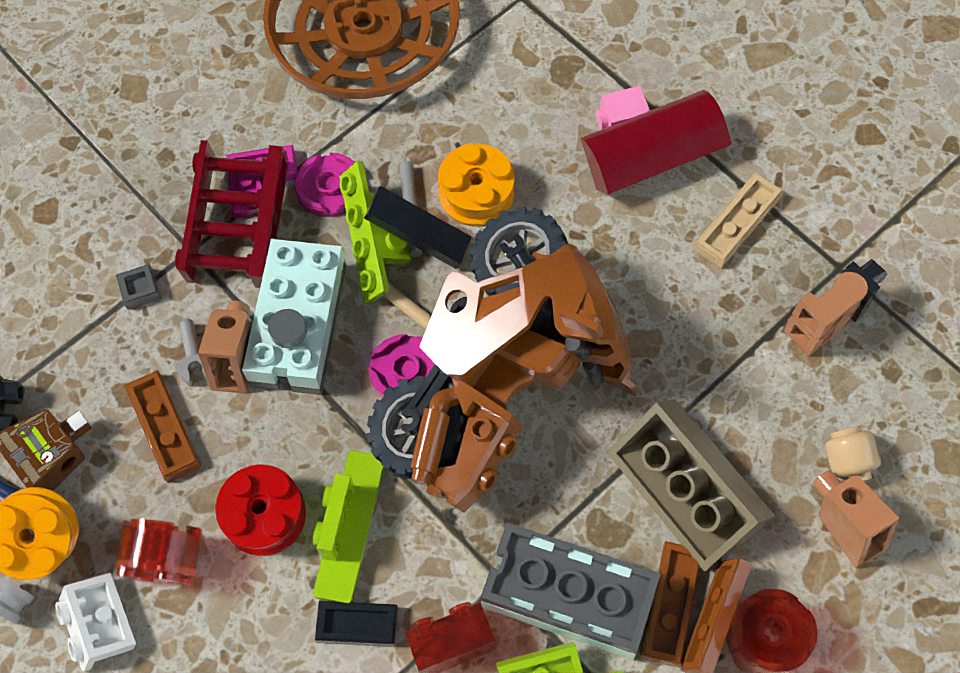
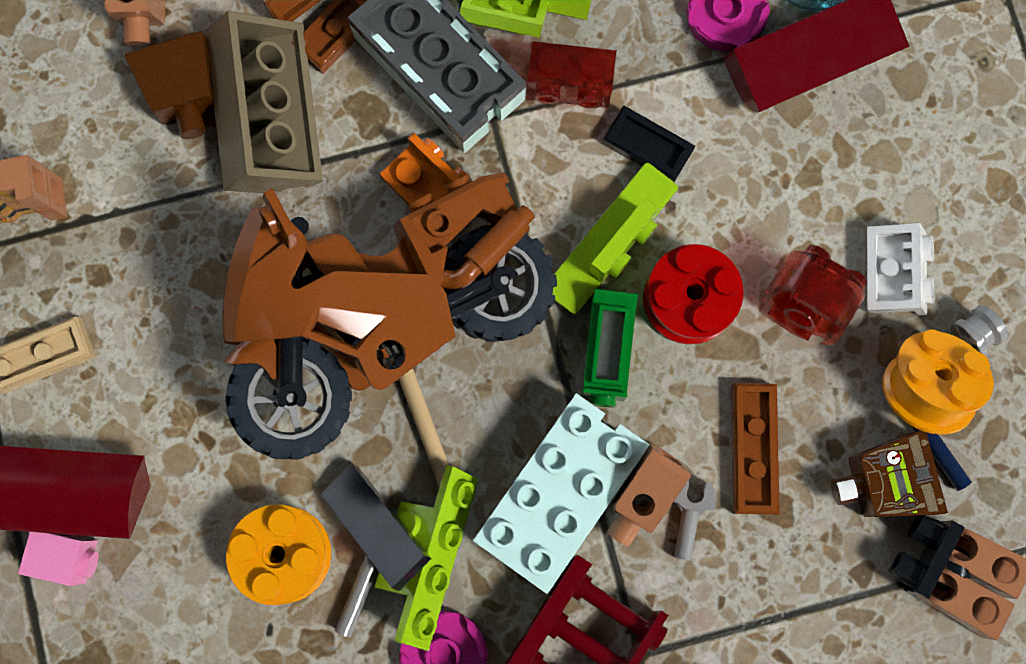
camera: 155 degrees left, 15 degrees up
(138, 286) = (717, 636): dark grey tile -> none
(287, 328) = (581, 458): dark grey tile -> none
(308, 434) = (609, 347): none -> green window
(397, 360) = (473, 378): dark pink tile -> none
(523, 494) = (420, 171): none -> orange bracket
(770, 462) = (176, 81): none -> reddish brown torso
(852, 453) = (92, 51): tan head -> none

